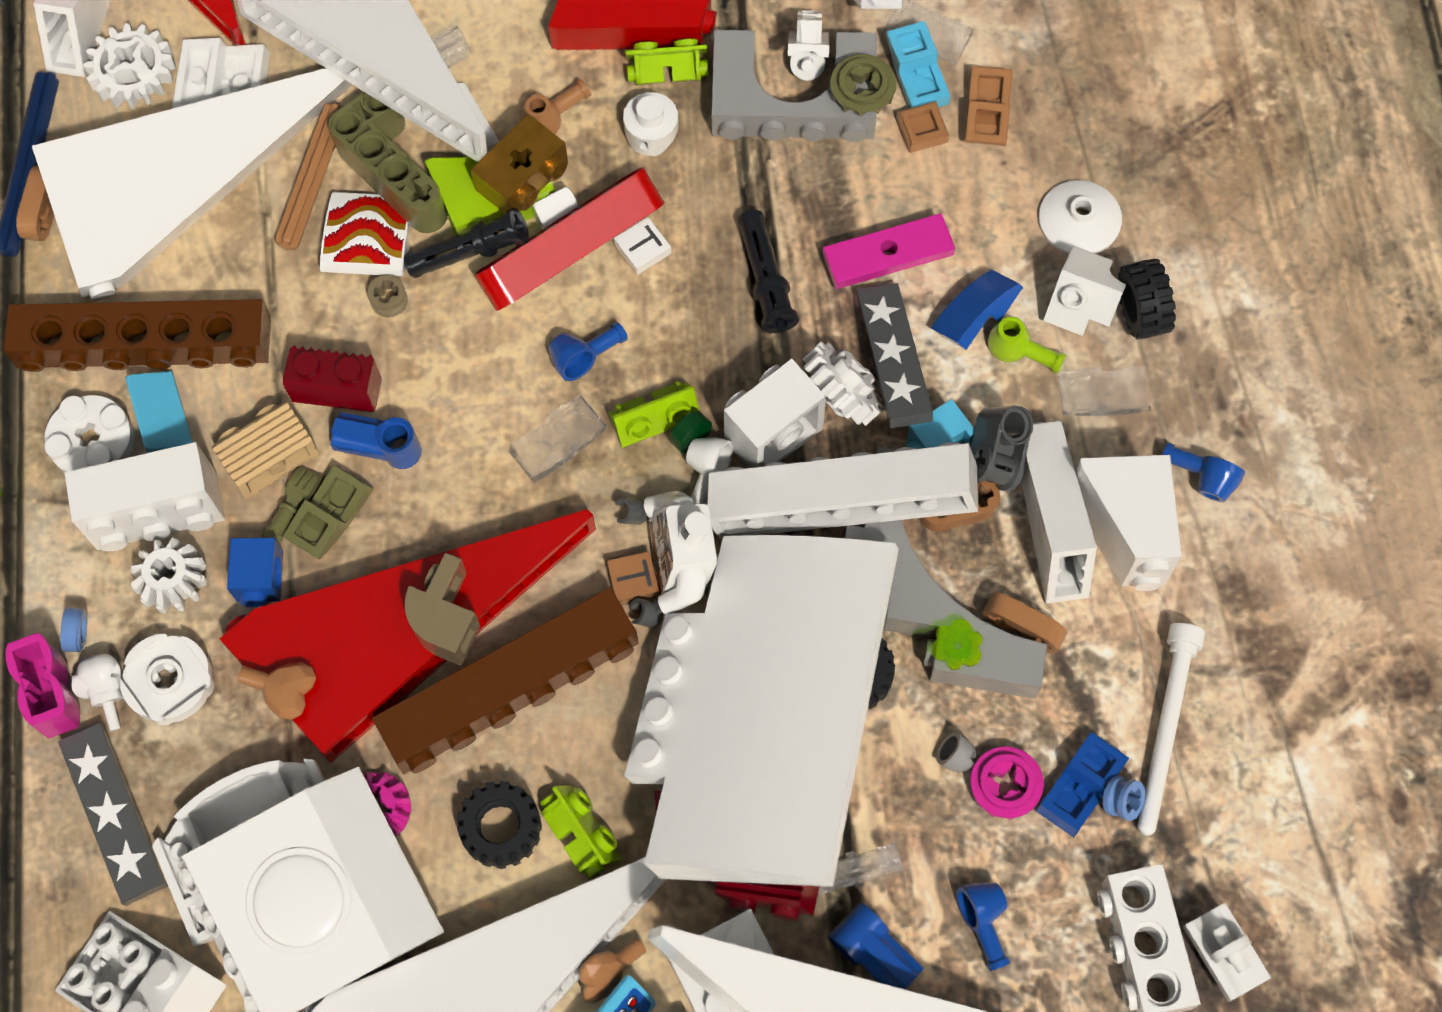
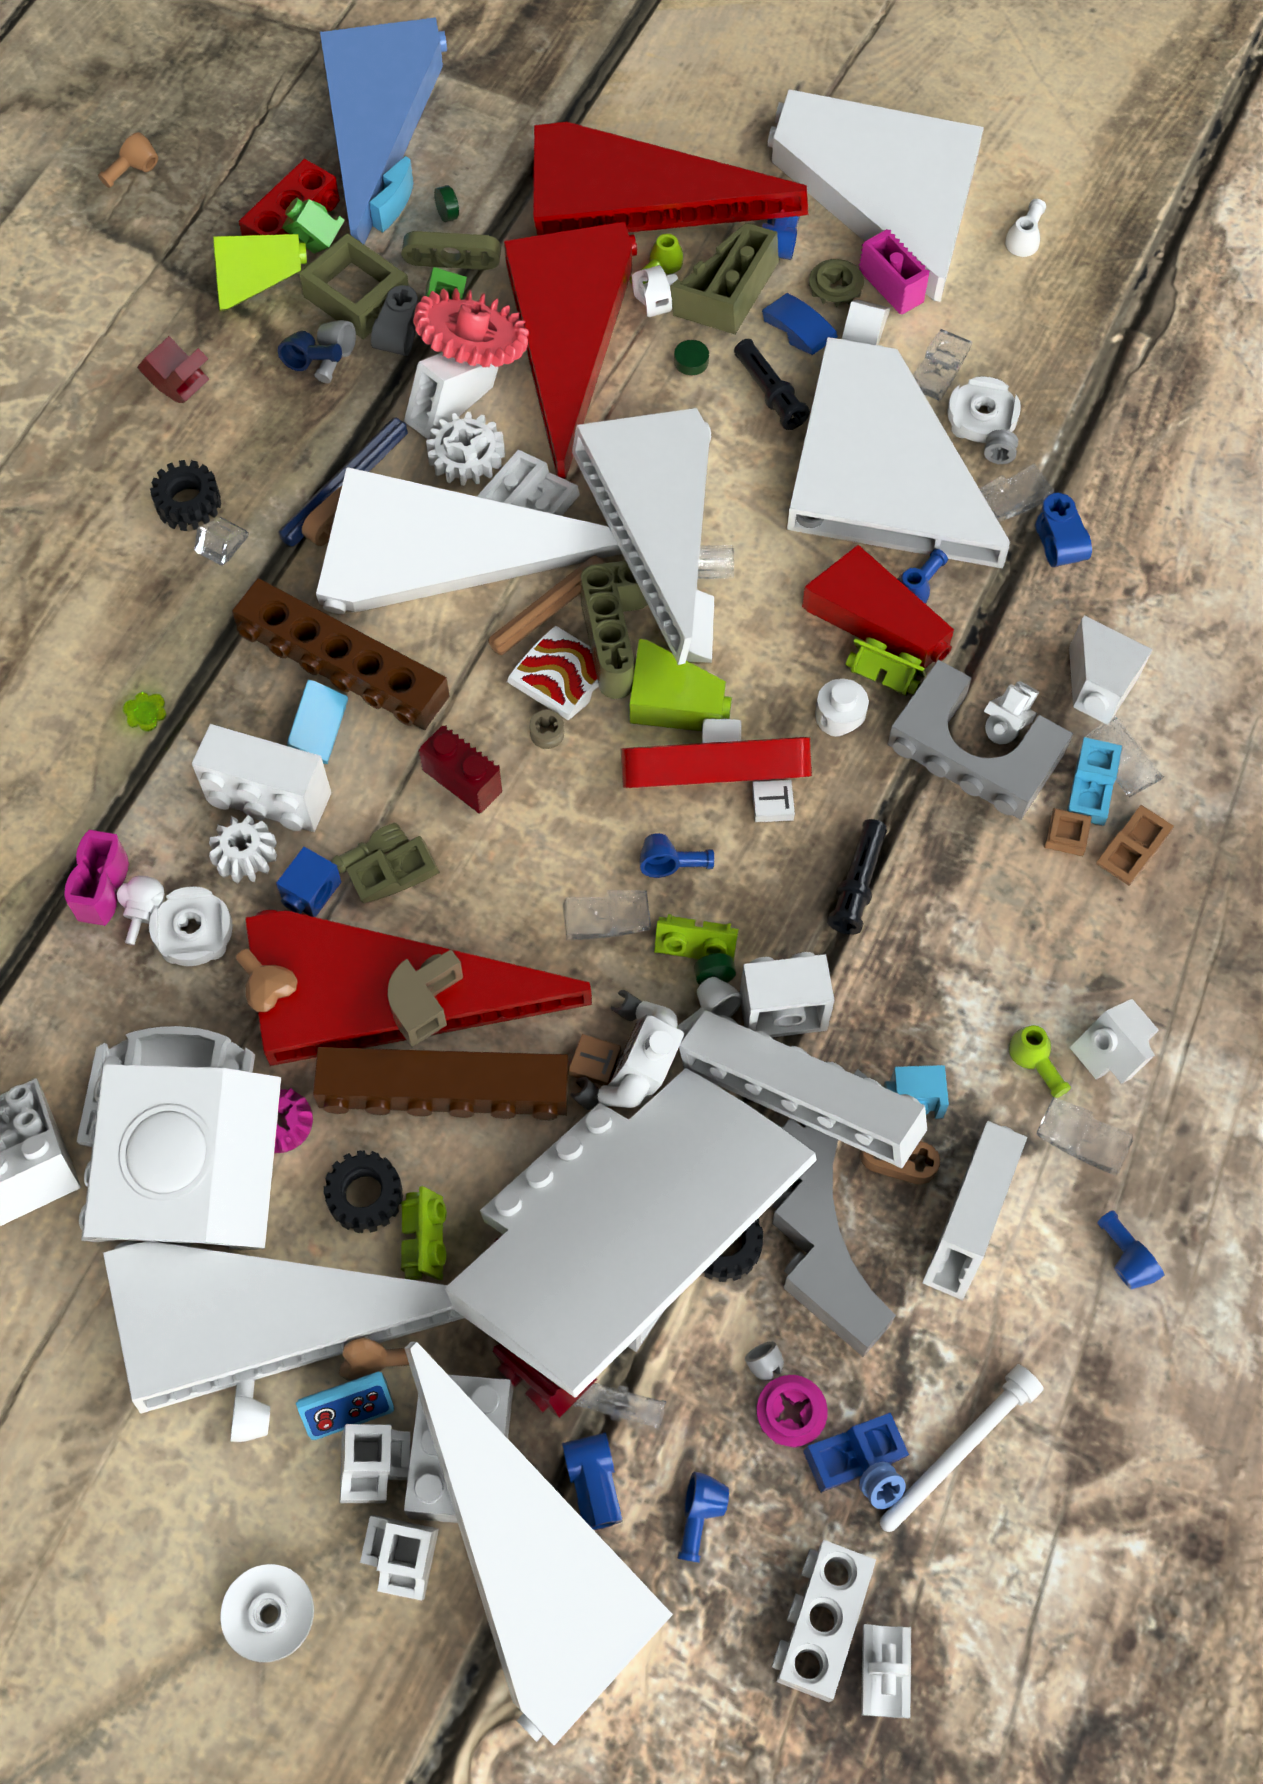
camera: 30 degrees right, 5 degrees down
(73, 629) = (147, 849): medium blue tile -> none
(78, 416) = (252, 692): white plate -> none
(112, 814) = (85, 1005): dark grey tile -> none
(264, 449) = (376, 794): tan brick -> none
(374, 438) = (464, 834): blue piece -> none
(481, 240) = (643, 724): black pin -> none
(520, 166) = (708, 682): pearl gold brick -> none
(550, 116) = (763, 660): medium nougat bar -> none
(844, 383) = (861, 1001): white gear -> none
(858, 69) = (1036, 754): olive gear -> none
(894, 356) = (920, 1003): dark grey tile -> none
(910, 243) = (995, 923): dark pink tile -> none
(958, 633) = (826, 1261): clear neon green plant -> none
(967, 313) = (1003, 1004): blue slope -> none
(1002, 444) = (957, 1131): dark grey piece -> none
(1024, 621) = (891, 1287): medium nougat beam -> none
(1067, 228) = (1155, 996): white dish -> none
(1133, 516) = (1036, 1250): white slope -> none
(1147, 299) = (1168, 1078): black tyre -> none

